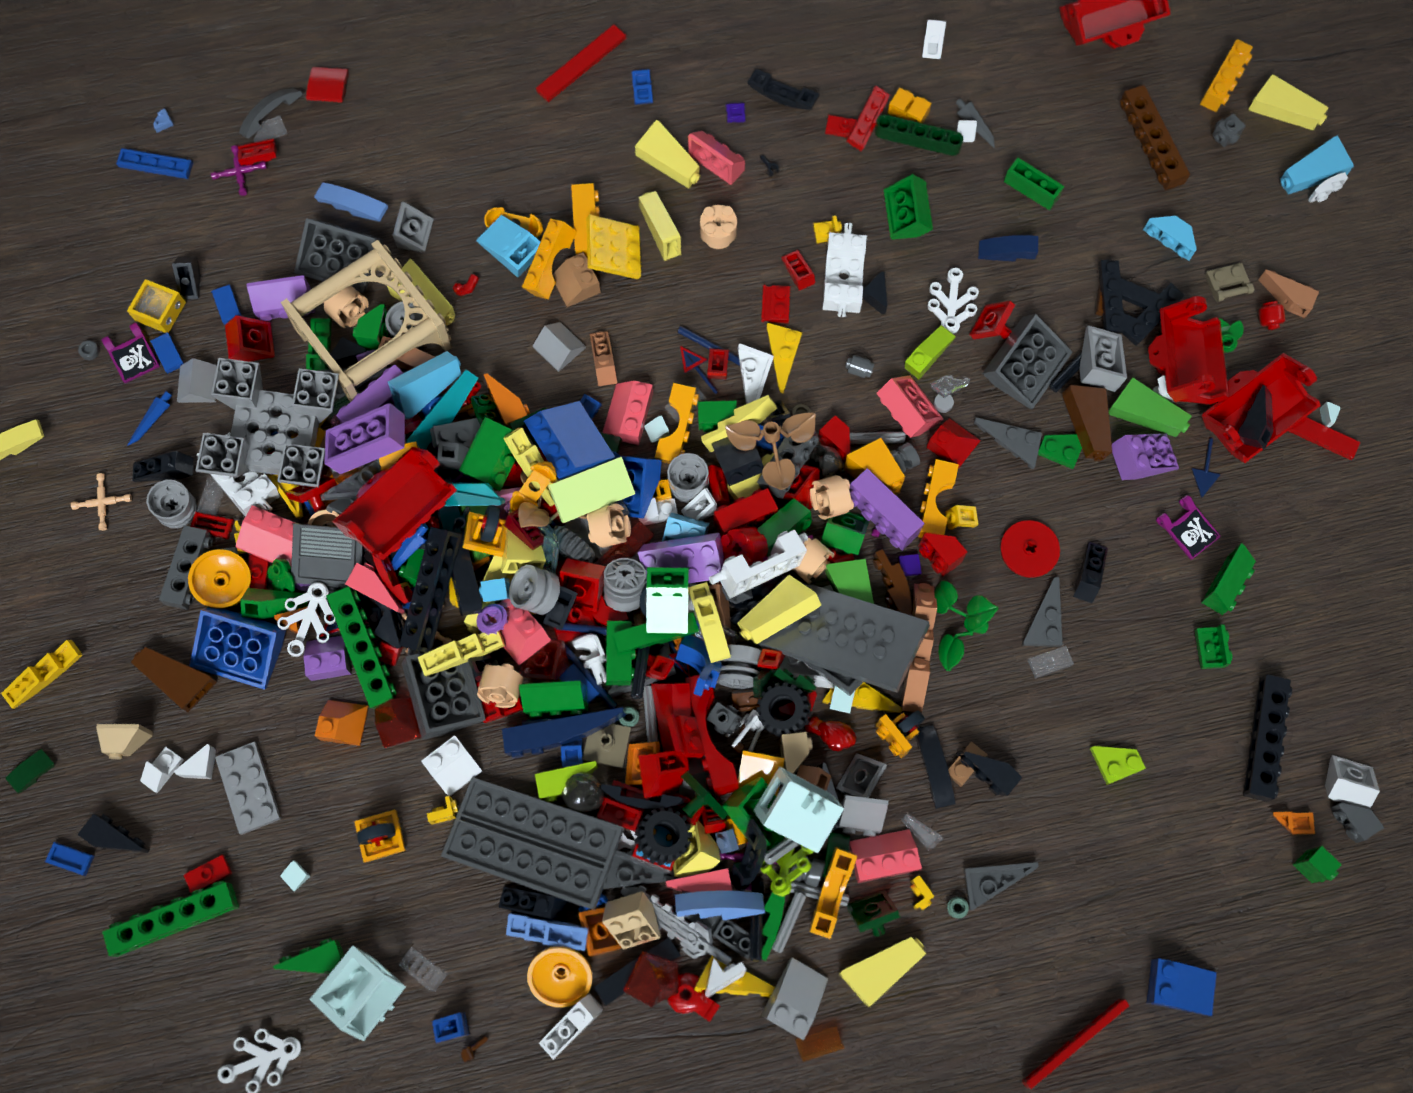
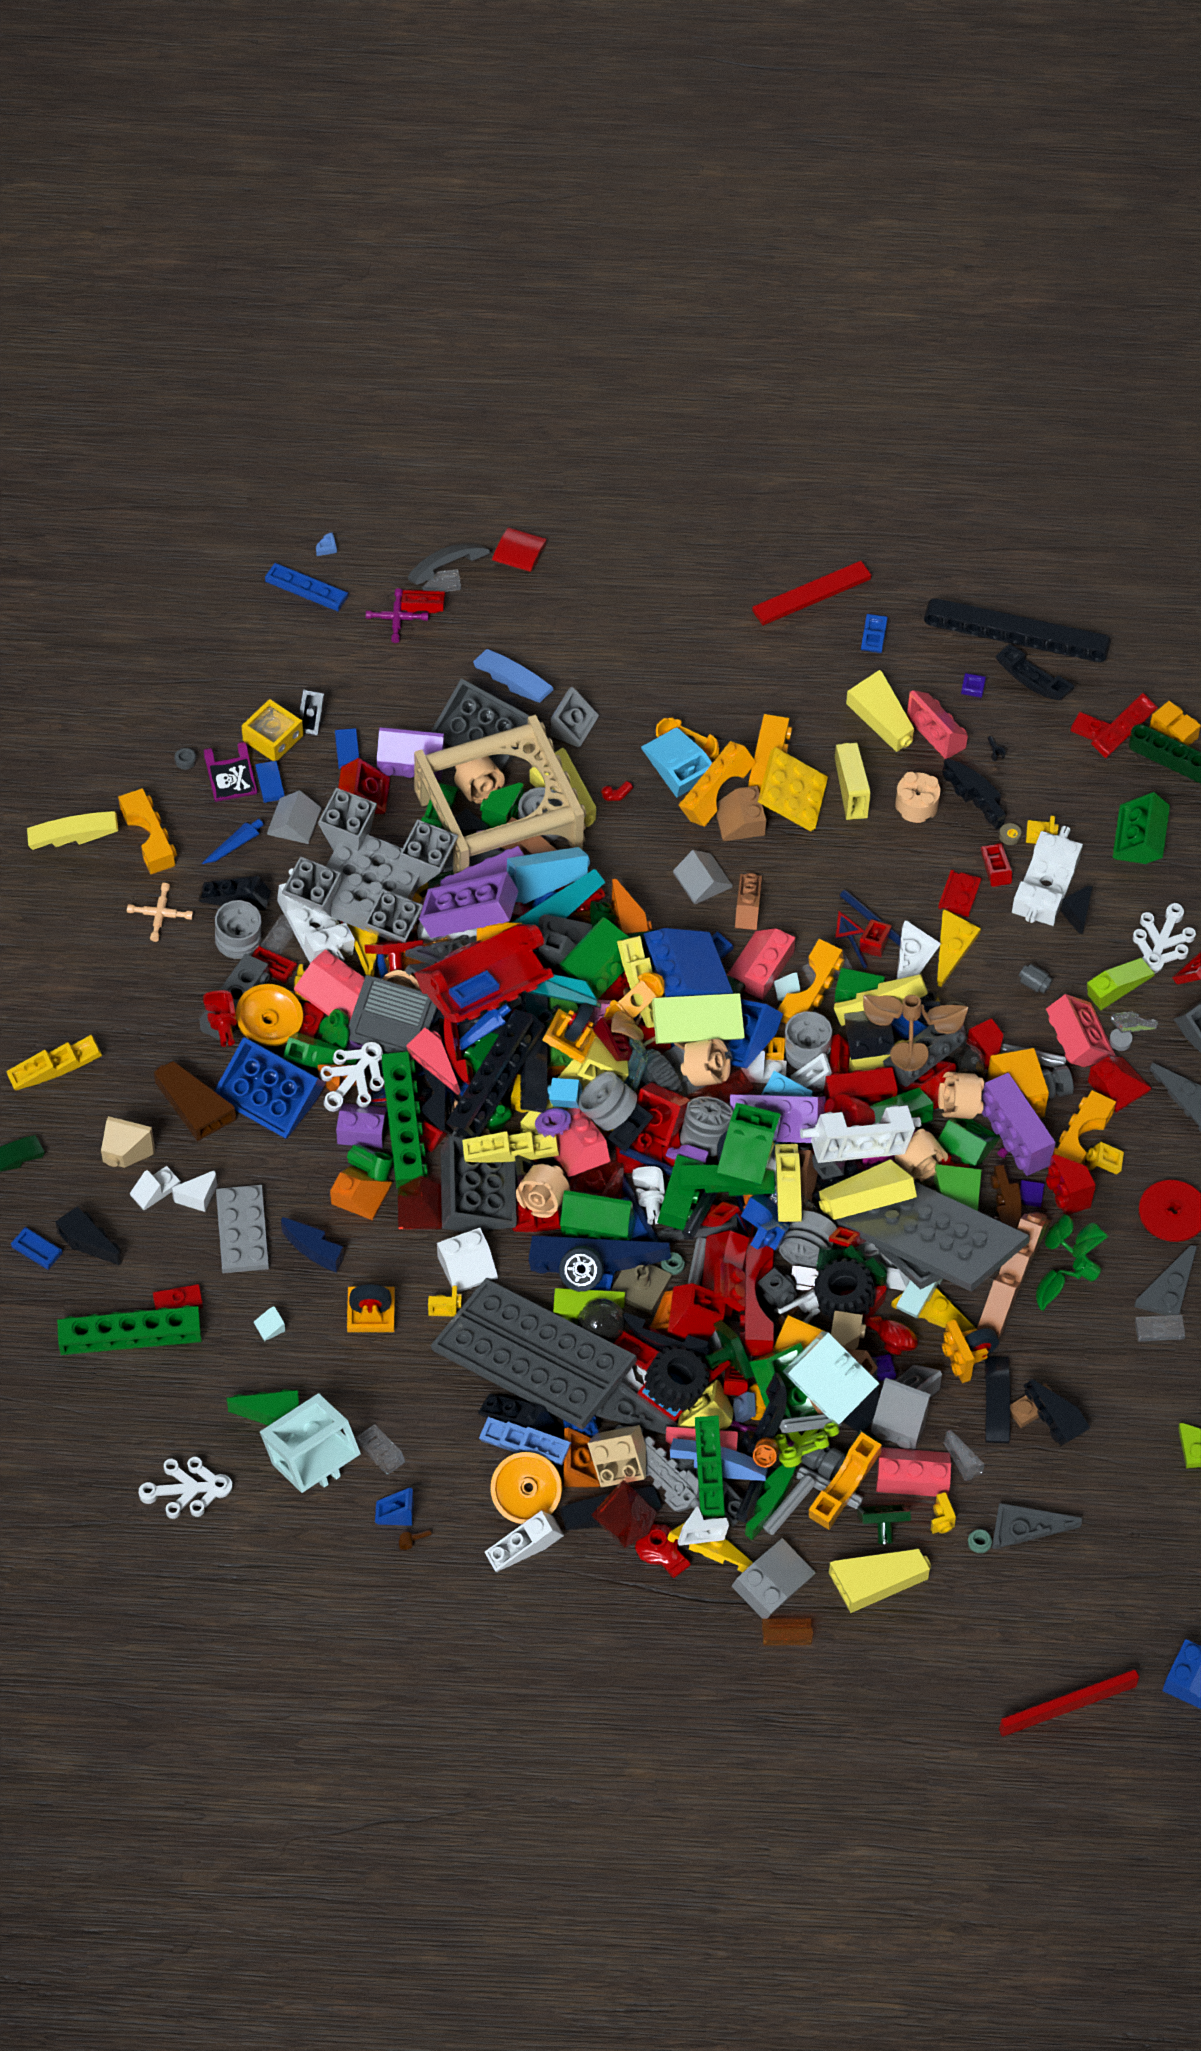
camera: 15 degrees right, 15 degrees down
(82, 445) = (138, 811): none -> light orange arch
(180, 598) = (223, 1005): none -> red piece
(314, 787) = (313, 1244): none -> dark blue slope
(348, 694) = (375, 1163): none -> green piece
(389, 520) = (474, 989): none -> blue tile
(445, 620) = (499, 1118): none -> green piece
(548, 760) = (581, 1256): none -> wheel
(616, 615) = (689, 1152): none -> medium lavender tile
(715, 920) = (709, 1466): none -> green slope
(757, 54) = (1017, 630): none -> black beam
(758, 886) = (765, 1457): none -> orange wheel
(760, 204) = (974, 787): none -> black slope
(802, 239) = (1010, 834): none -> dark tan tile
(833, 763) = (885, 1367): none -> dark purple tile

